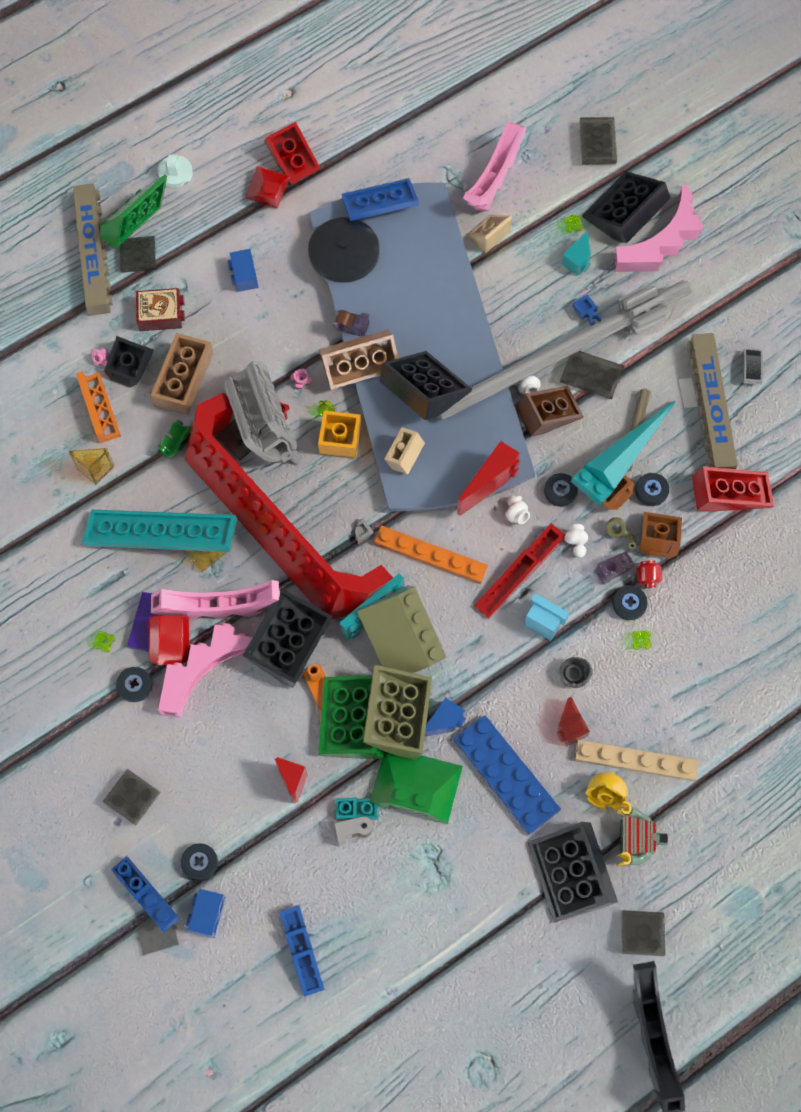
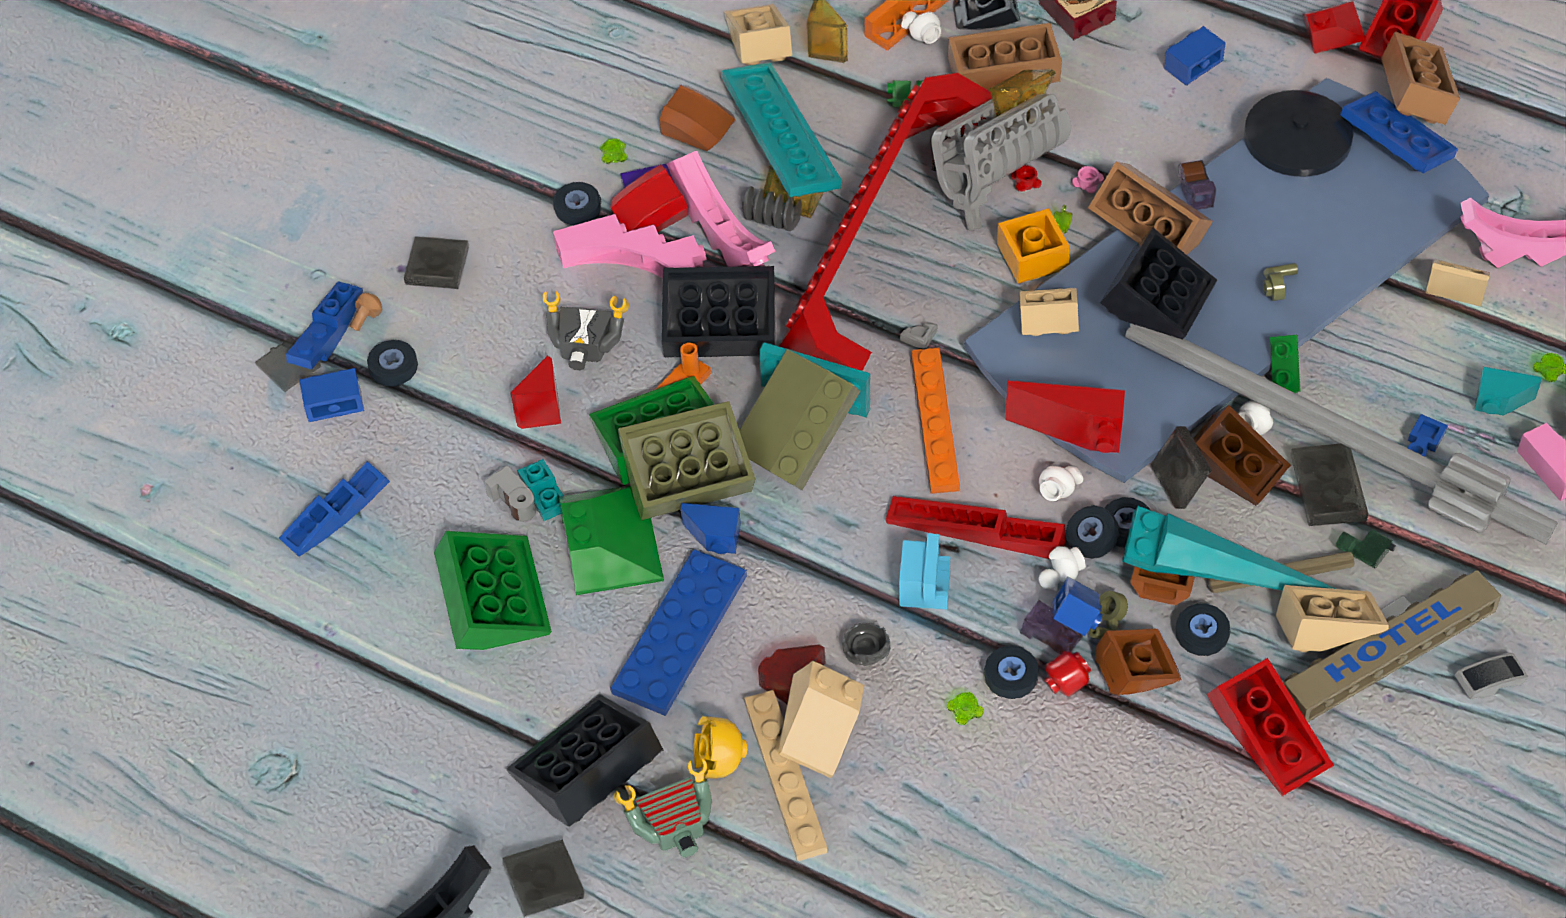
camera: 65 degrees right, 15 degrees down
(60, 503) = (759, 34): none -> tan slope
(111, 576) = (695, 118): none -> dark orange slope
(122, 406) = (922, 27): none -> white animal
(144, 857) = (367, 305): none -> medium nougat plate
(216, 568) = (771, 210): none -> dark grey piece
(238, 377) = (1020, 89): none -> clear yellow slope
(249, 728) = (584, 332): none -> dark grey torso
(347, 166) = (1420, 79): none -> medium nougat brick
(420, 875) = (490, 589): none -> green slope
(451, 323) = (1274, 282): none -> olive plate
(505, 349) = (1285, 362): none -> green hinge
(547, 441) = (1181, 467): none -> clear smoke plate
(568, 503) = (1103, 523): none -> black bush
(615, 545) = (1077, 606): none -> blue brick
(617, 722) = (819, 717): none -> tan slope
(644, 378) = (1370, 550): none -> clear green piece
(684, 422) = (1327, 617): none -> tan slope

